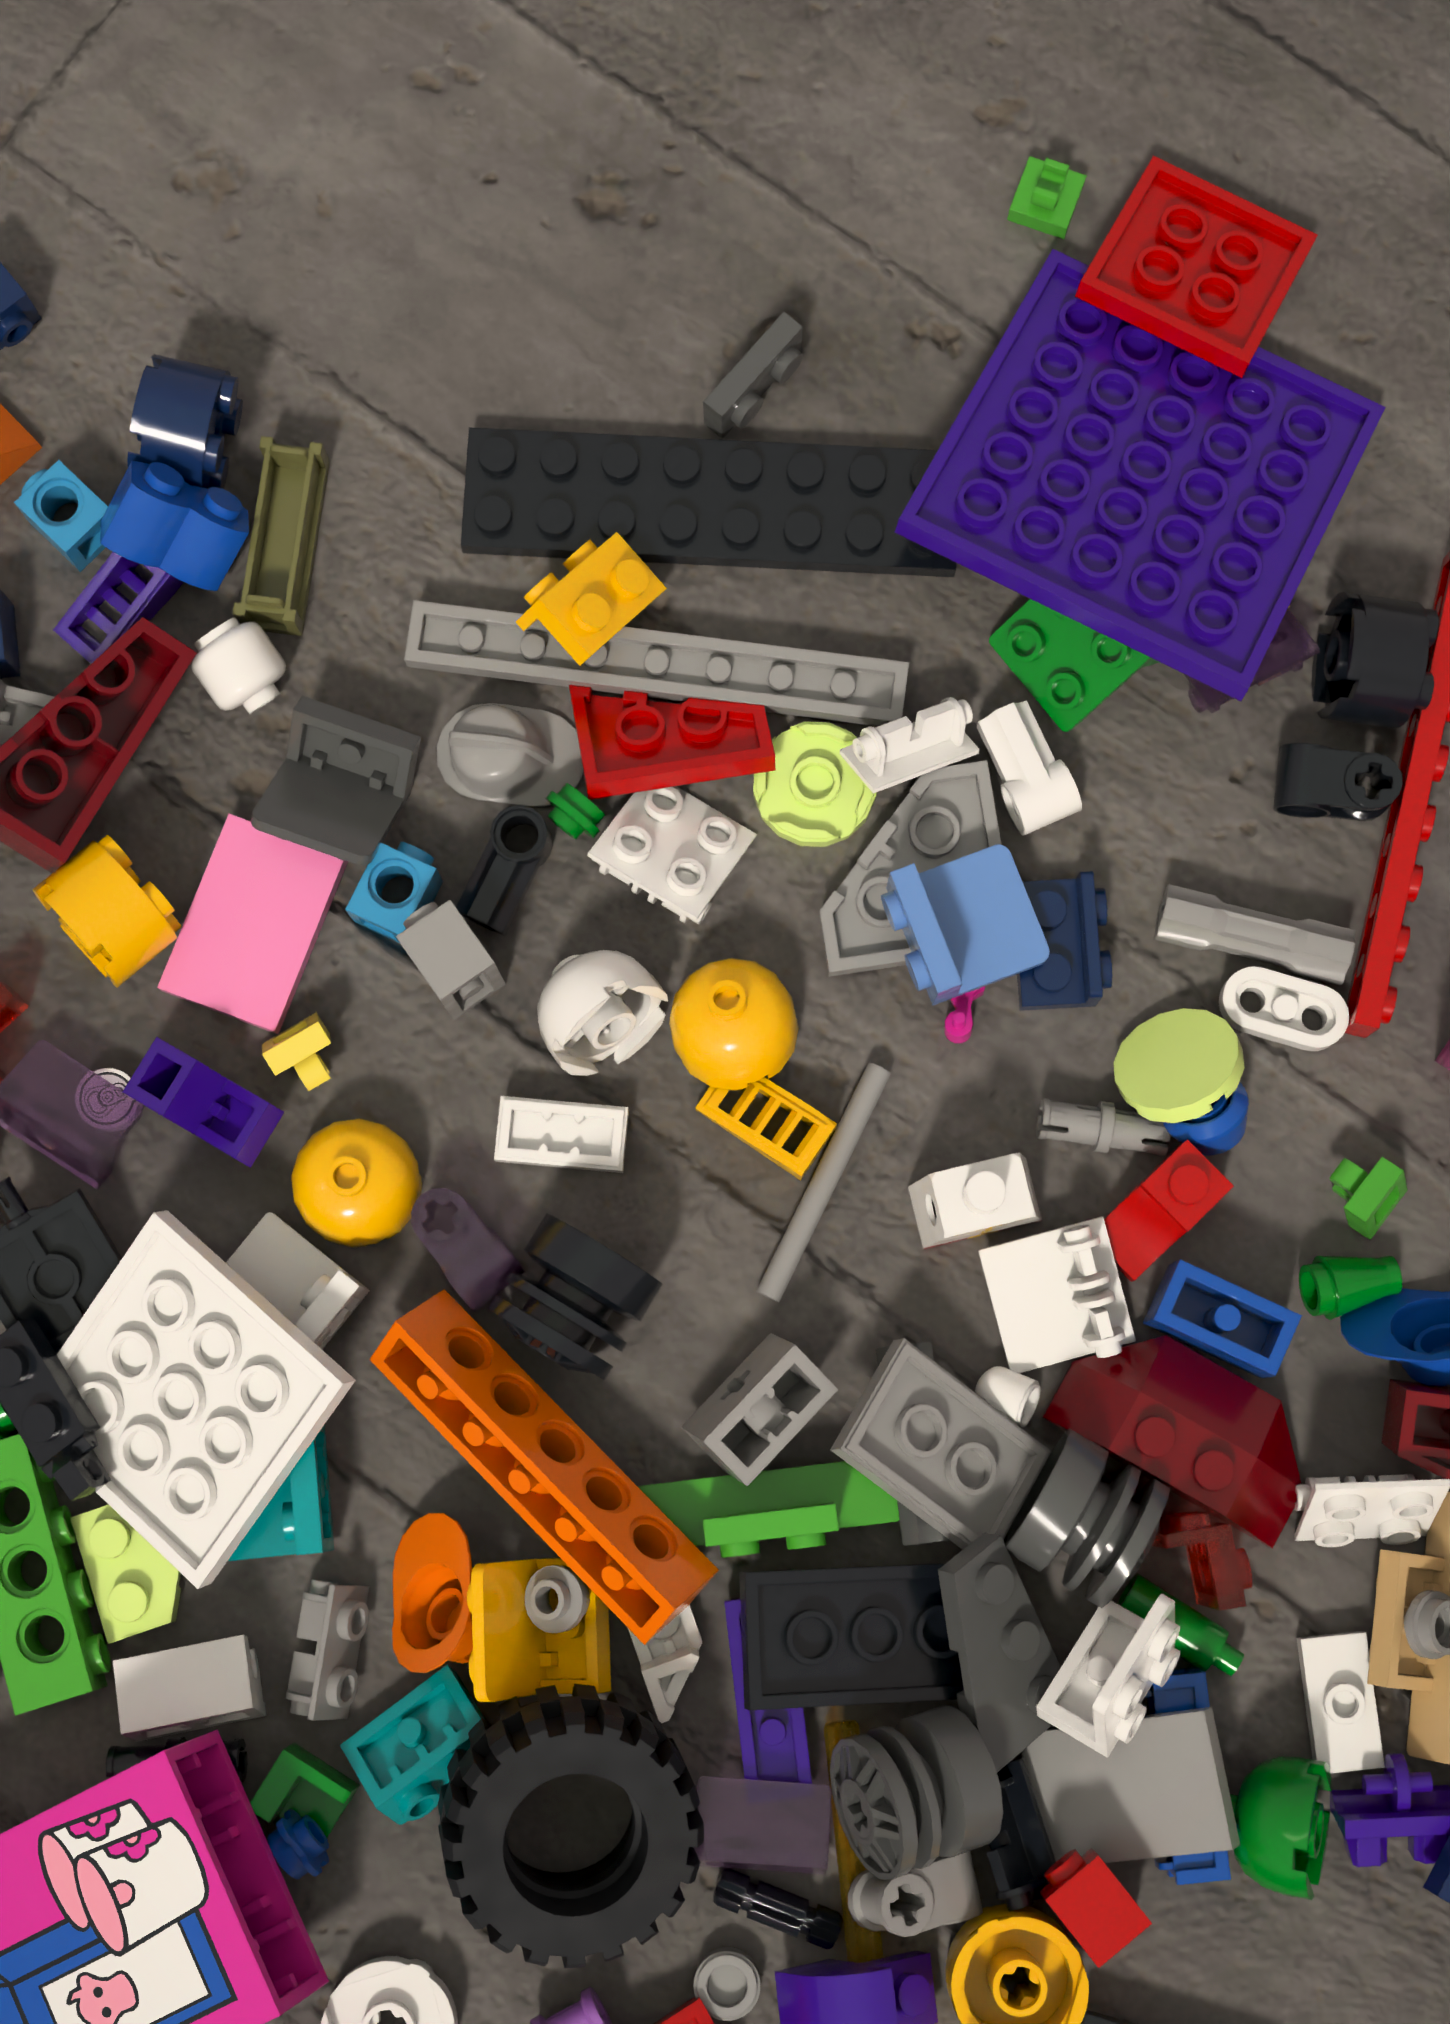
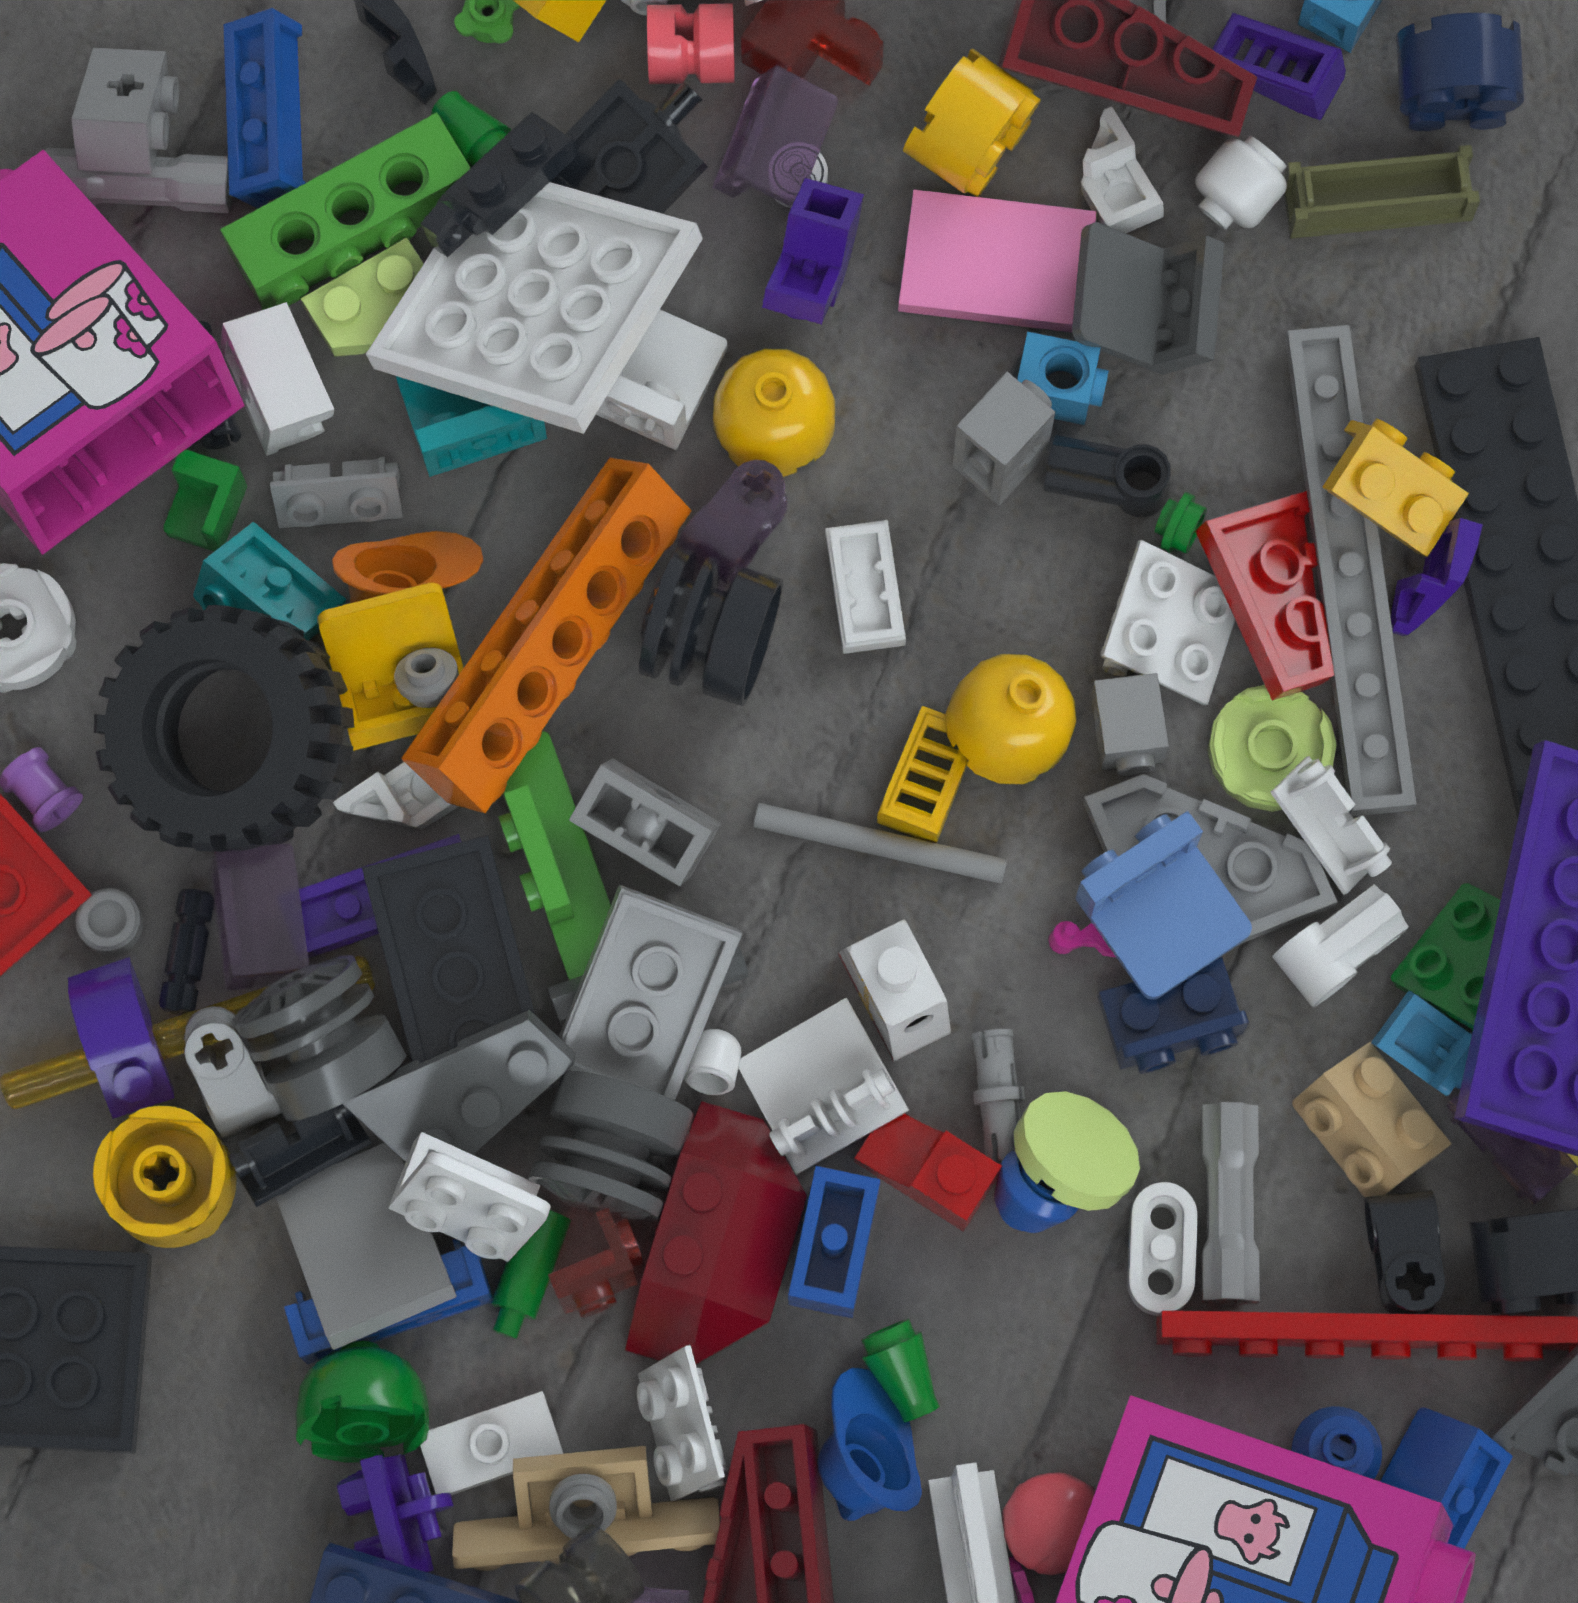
camera: 75 degrees right, 5 degrees down
(175, 525) = (1357, 87): blue brick -> none
(200, 787) = (1115, 180): none -> white slope
(299, 1049) = (885, 330): light yellow tile -> none
(299, 1845) = (156, 504): blue plate -> none
(509, 754) = (1224, 451): light grey piece -> none
(598, 1008) = (991, 587): white cylinder -> none
(688, 582) = (1442, 576): none -> dark purple slope
(765, 911) = (1129, 724): none -> light grey brick
(1093, 1905) = (249, 1225): red arch -> none
(1144, 710) = (1425, 1043): none -> dark azure bracket
(1203, 784) = (1370, 1122): none -> tan bracket
(1369, 1195) = (994, 1371): bright green tile -> none

